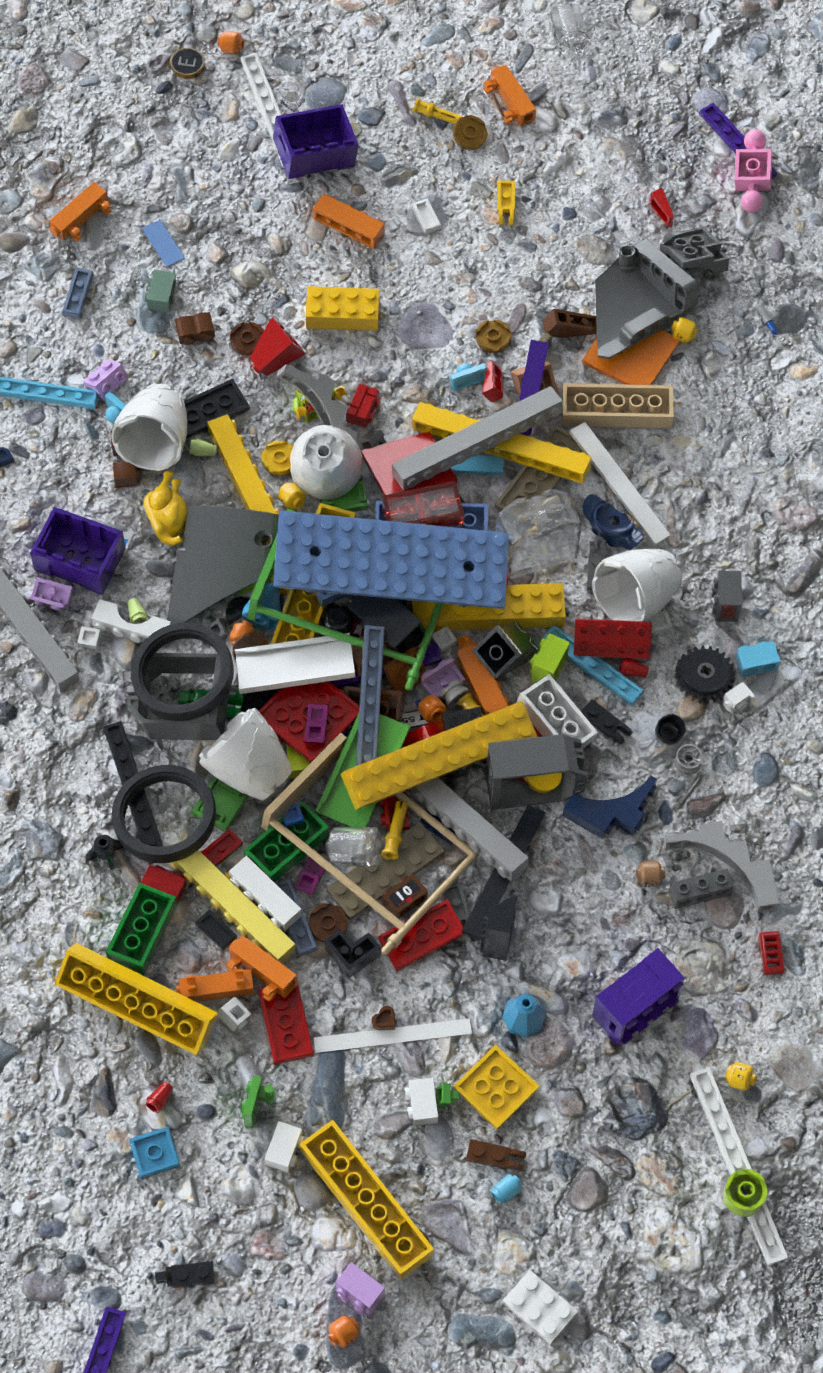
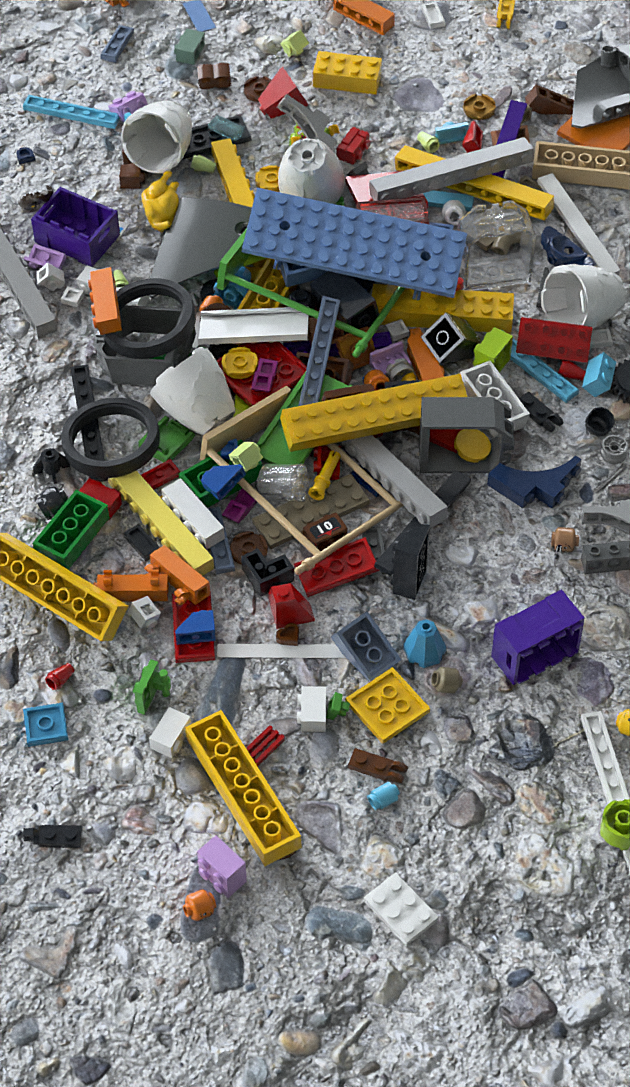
camera: 10 degrees right, 10 degrees down
(36, 519) = (31, 201): none -> dark brown animal
(61, 617) = (50, 277): none -> white brick
(116, 897) = (51, 501): none -> black piece
(134, 658) = (105, 301): none -> orange brick
(220, 399) = (226, 127): none -> clear light blue tile
(278, 275) = (295, 43): none -> yellowish green brick
(287, 710) = (240, 363): none -> yellow tile
(291, 856) = (222, 479): none -> blue slope
(292, 1027) = (196, 628): none -> blue slope
(312, 824) = (247, 455): none -> yellowish green brick
(381, 989) = (289, 606): none -> red slope
(388, 1133) = (274, 734): none -> red tile
(408, 739) = (347, 391): none -> reddish brown hinge
(444, 391) = (430, 143): none -> yellowish green cone
(465, 1024) = (366, 647): none -> sand blue slope
(485, 483) = (453, 206): none -> white plant
(551, 1051) = (446, 680): none -> dark tan head
(663, 672) = (599, 374): none -> medium azure brick

